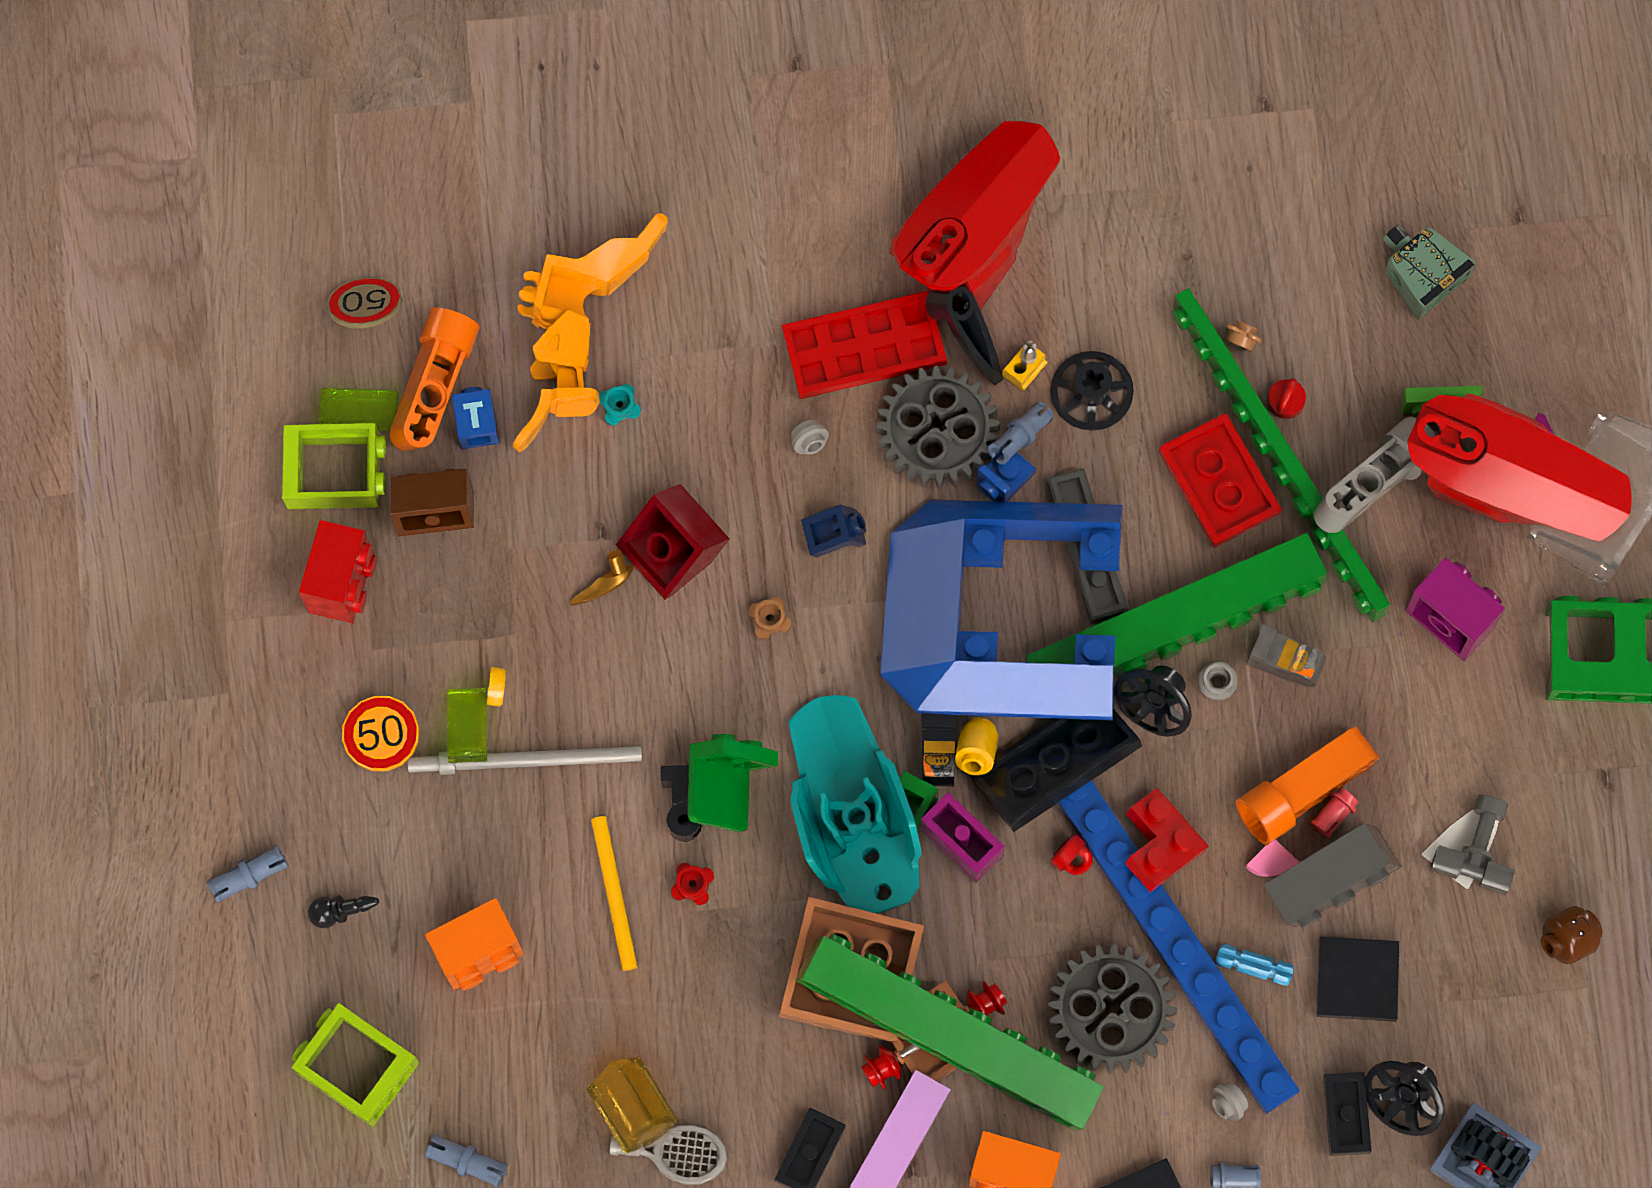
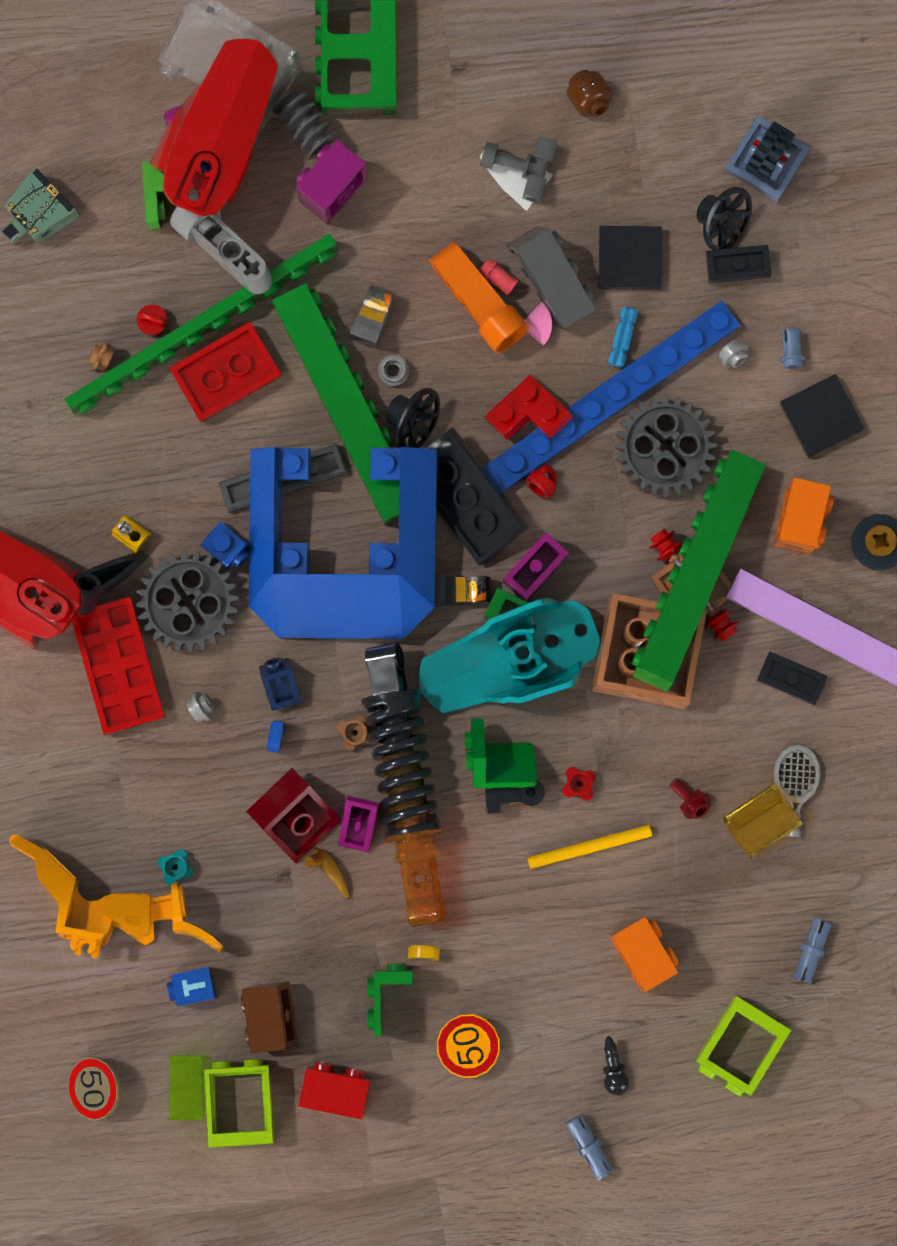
camera: 95 degrees left, 10 degrees up
(447, 342) = (126, 1018): orange beam -> none
(452, 624) = (395, 974): none -> green bracket
(467, 725) = (457, 975): clear neon green tile -> none
(528, 759) = (488, 988): light grey bar -> none
(655, 672) = (409, 823): none -> black piece
(660, 616) = (358, 823): none -> magenta slope
(660, 1025) = (694, 804): none -> dark red plate
(770, 524) = (275, 736): none -> blue tile
(977, 746) = (459, 559): yellow brick -> none
(1020, 432) = (192, 533): sand blue pin -> none
(1092, 388) = (149, 478): black wheel -> none
(1533, 581) = (303, 123): none -> dark grey piece

